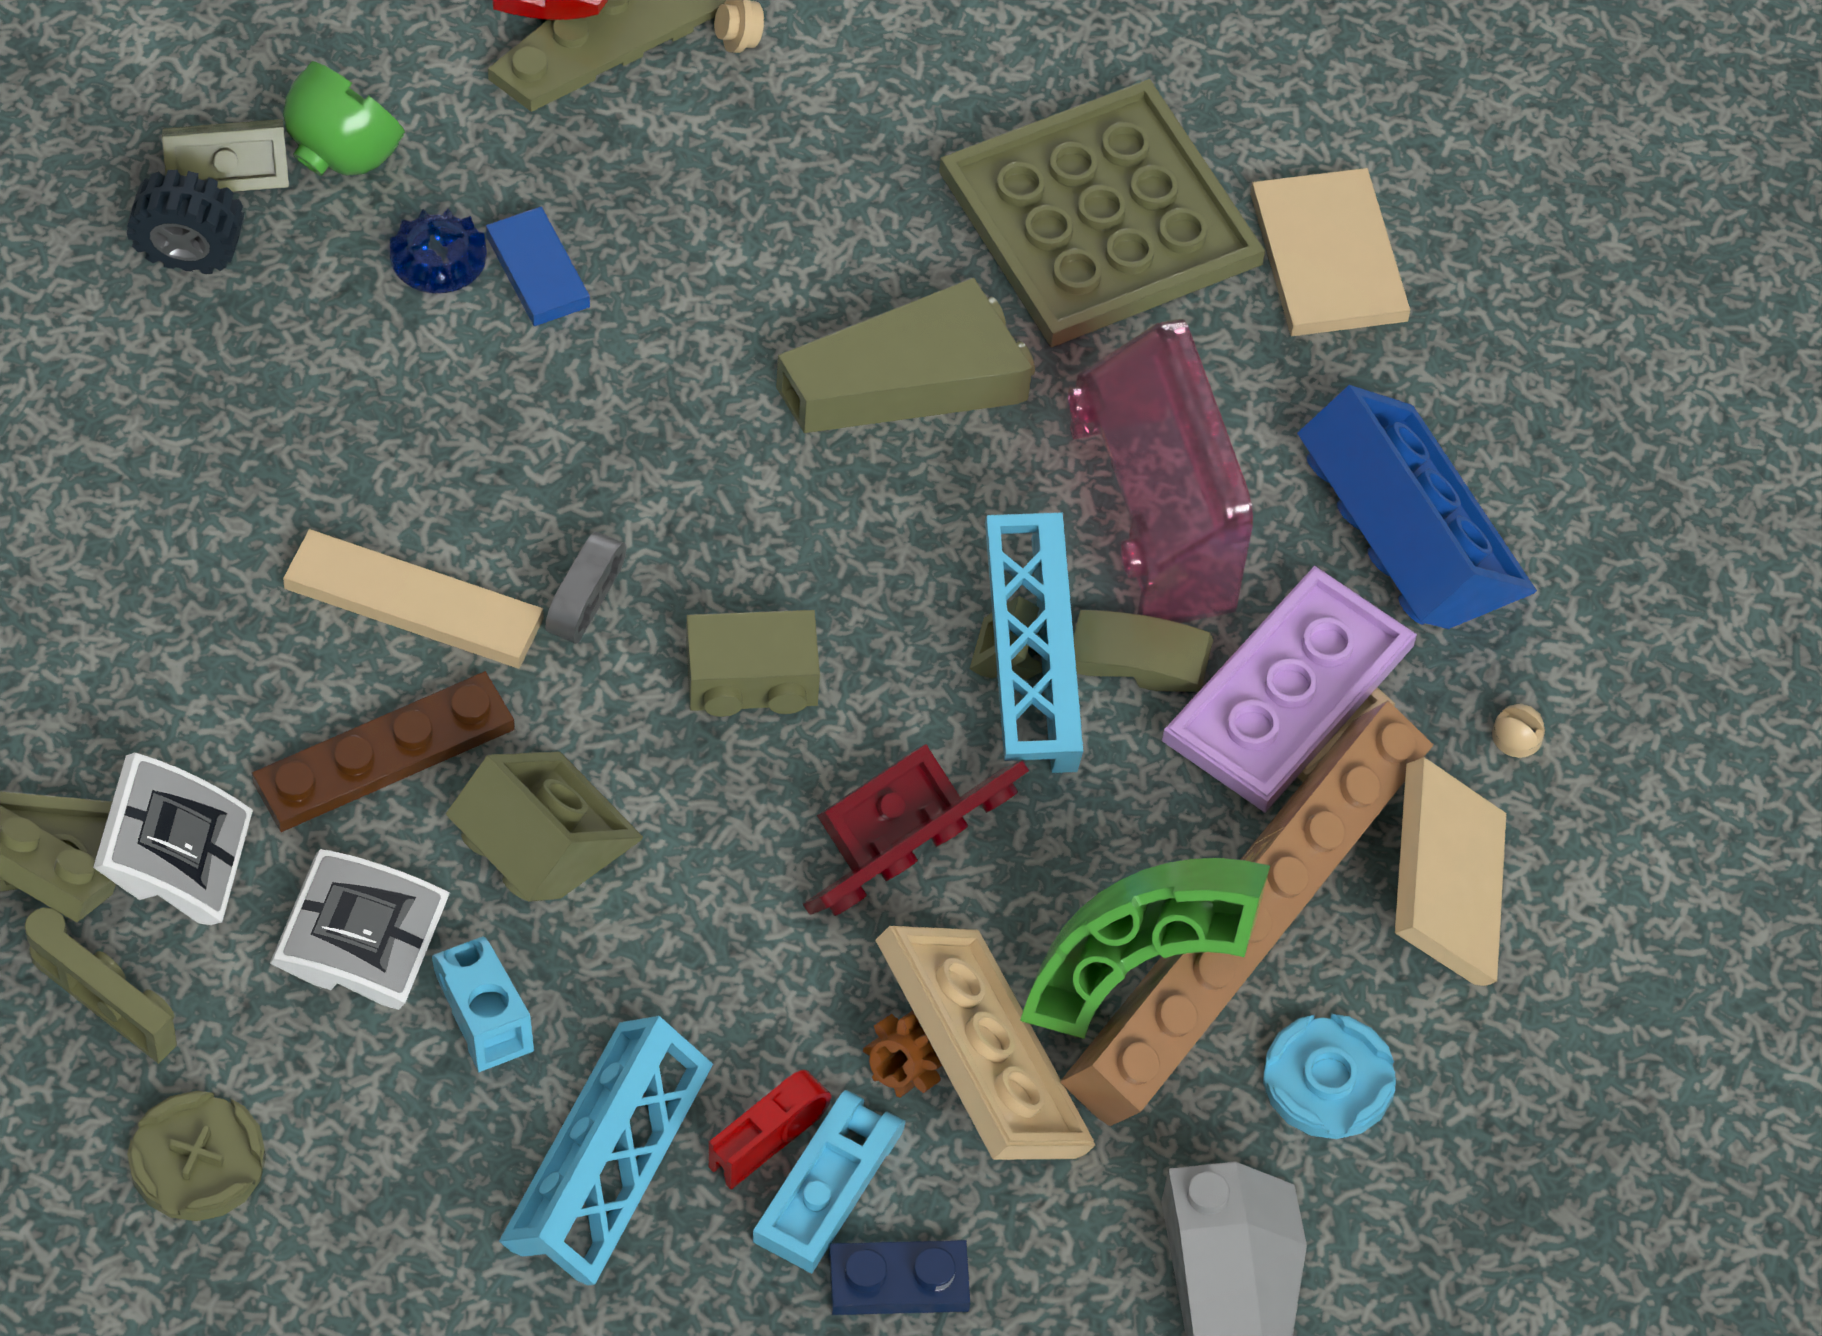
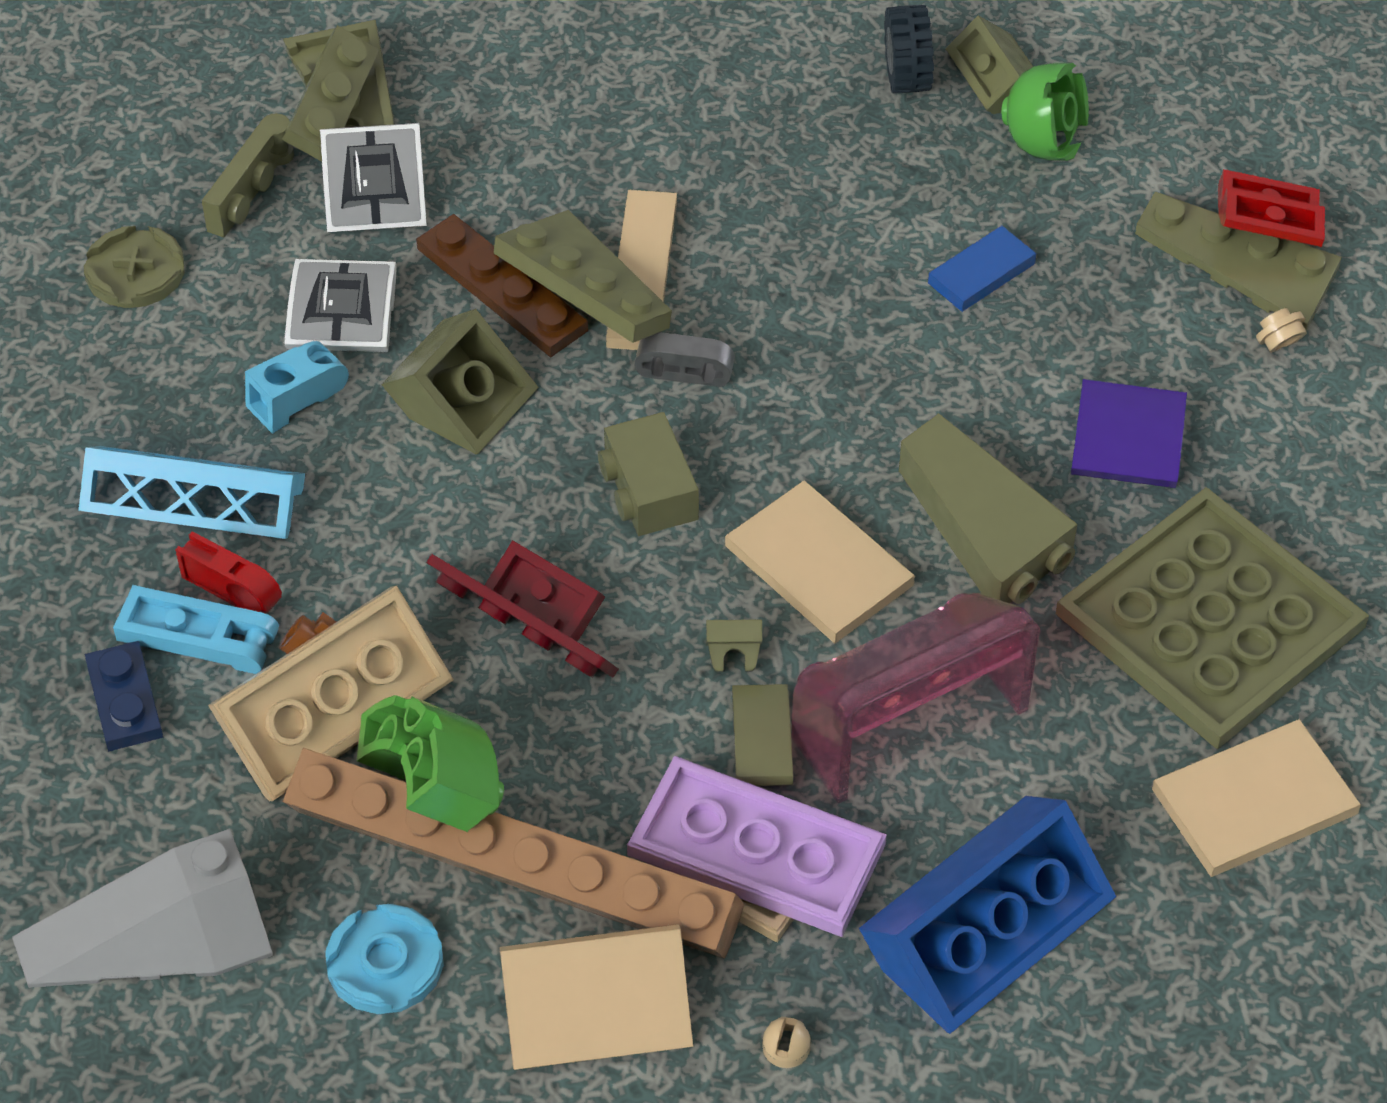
camera: 80 degrees right, 5 degrees down
(417, 652) = (584, 272): none -> olive wing
(423, 268) = (968, 222): clear blue gear -> none
(836, 202) = (1129, 433): none -> dark purple slope
(909, 538) = (819, 561): none -> tan tile
(1054, 645) = (727, 658): medium azure fence -> none

